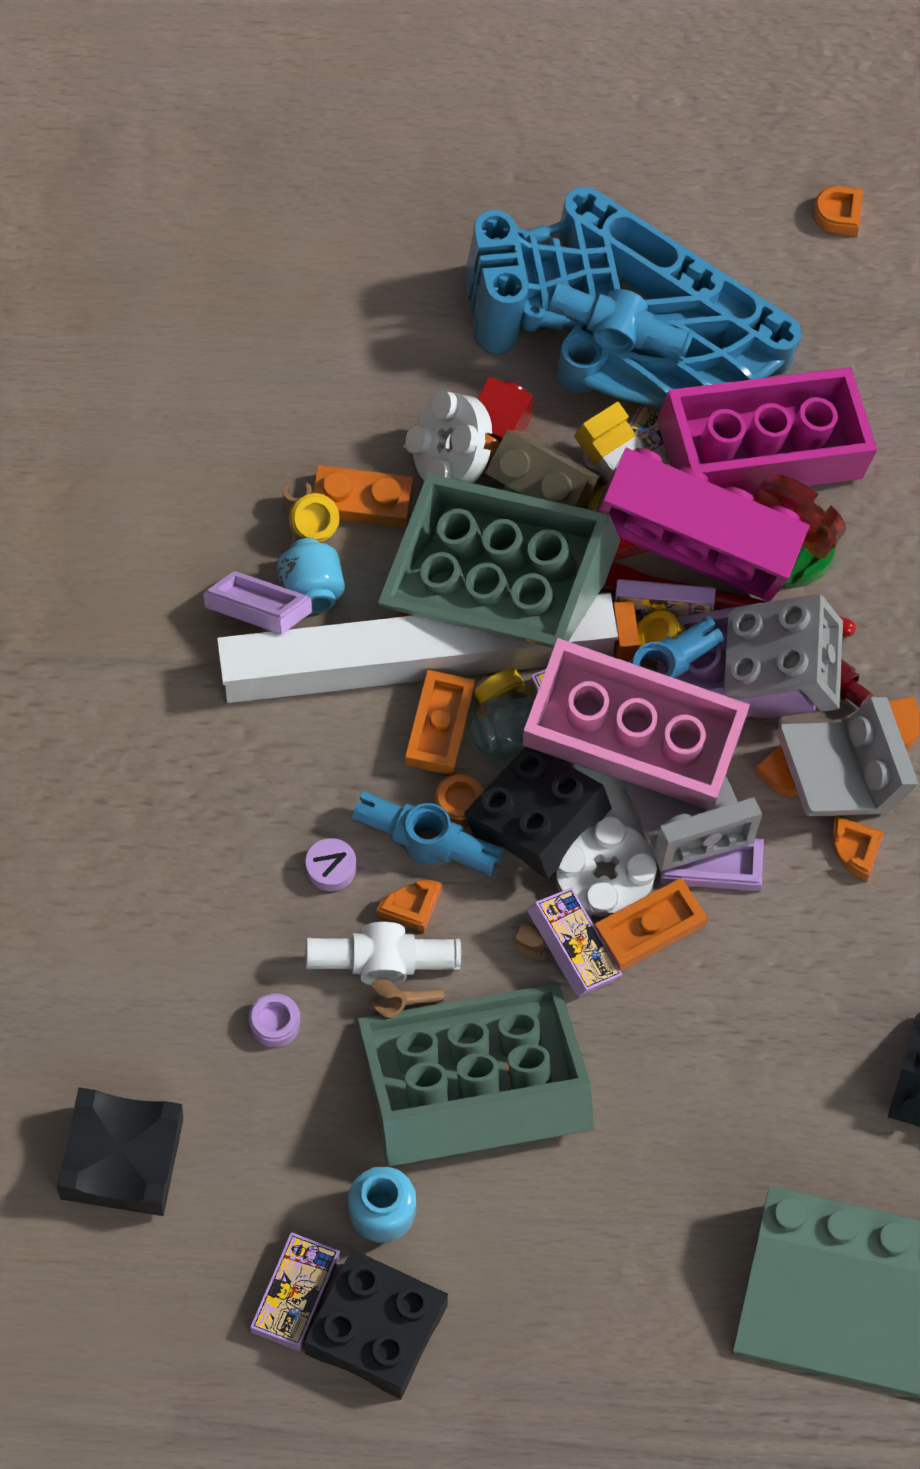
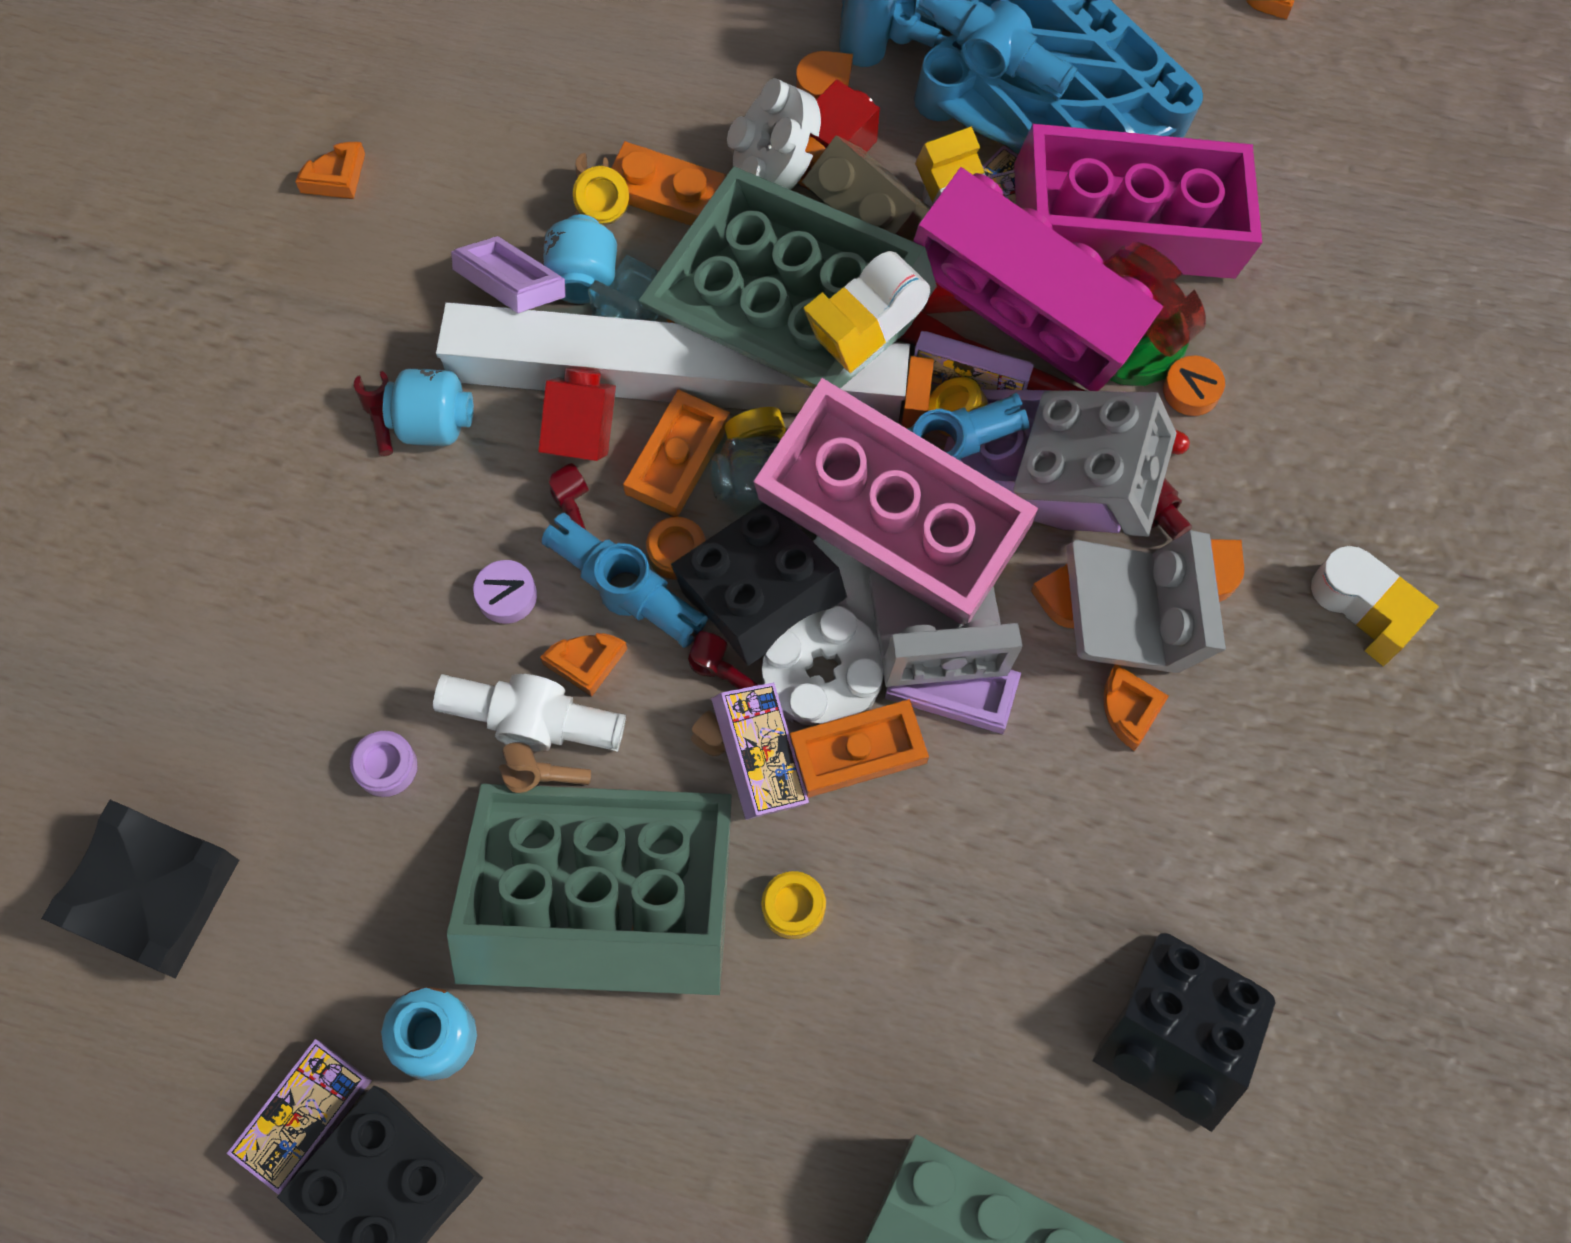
camera: 15 degrees right, 5 degrees up
(70, 543) = (334, 172): none -> orange tile
(175, 736) = (373, 404): none -> dark red hand
(222, 728) = (427, 407): none -> medium azure head
(353, 708) = (577, 415): none -> red brick
(356, 769) = (567, 486): none -> dark red hand
(359, 597) = (622, 295): none -> clear light blue bracket
(470, 370) = (821, 69): none -> orange tile
(510, 882) = (707, 658): none -> dark red hand
(578, 576) = (868, 309): none -> leg
(630, 1055) = (793, 905): none -> yellow tile
(848, 577) = (1194, 385): none -> orange tile

